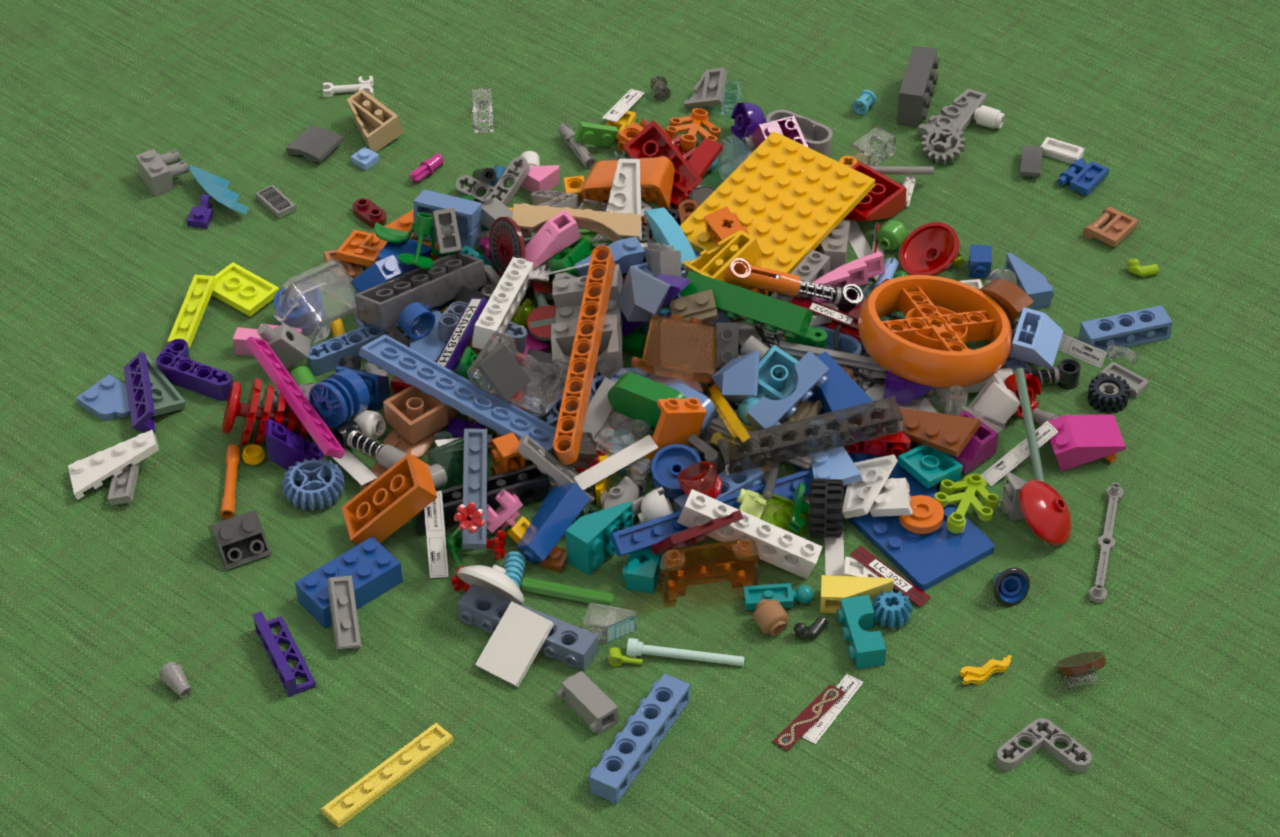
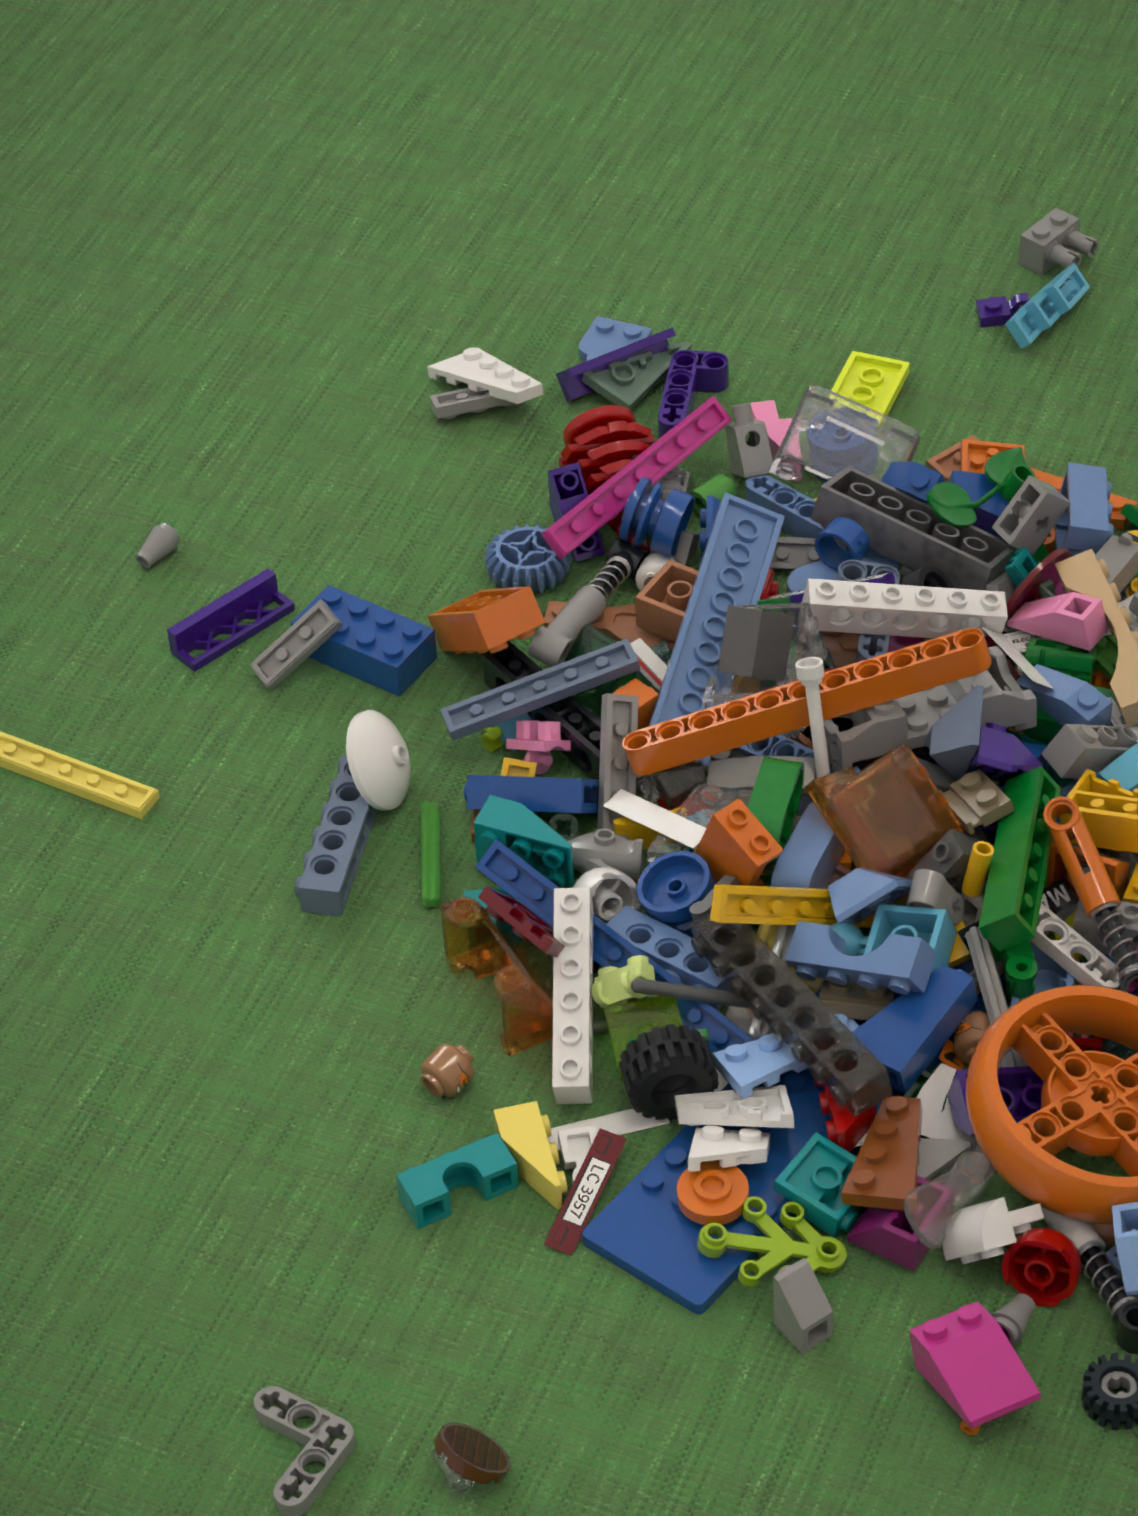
camera: 75 degrees right, 0 degrees up
(193, 308) = (794, 356): neon yellow plate -> none
(228, 500) = (474, 498): orange piece -> none
(239, 539) = (405, 524): dark grey slope -> none
(275, 201) = (1064, 367): tile -> none
(355, 468) = (563, 593): white sticker -> none
(369, 212) = (1096, 451): dark red plate -> none
(436, 538) = (469, 687): white sticker -> none
(471, 519) = (450, 686): red plant -> none
(514, 644) = (299, 818): white tile -> none
(515, 566) = (437, 788): medium azure piece -> none
(589, 702) = (230, 923): light grey brick -> none
(591, 329) = (810, 673): none -> white piece
(609, 622) = (377, 902): clear slope -> none
(616, 658) = (327, 932): lime hand -> none
(637, 648) = (347, 946): light aqua piece -> none
(639, 738) = (185, 989): medium blue brick -> none
(701, 478) = (643, 911): clear red piece -> none
(744, 321) = (977, 869): none -> yellow axle
(780, 592) = (496, 1067): teal plate -> none
(808, 717) = (288, 1163): sticker -> none
(813, 631) = (446, 1127): pearl dark grey arm -> none
(825, 311) = (1088, 954): sticker -> none
(850, 686) = (313, 1185): white sticker -> none
(892, 609) = (513, 1205): dark azure gear -> none
(979, 675) = (429, 1345): yellow hair -> none
(1011, 586) = (609, 1335): blue hat -> none
(1017, 455) = (905, 1290): white sticker -> none
(1029, 426) = (892, 1304): sand green piece -> none
(1045, 512) = (750, 1325): red dish -> none
(1114, 494) = (651, 1461): light grey piece -> none

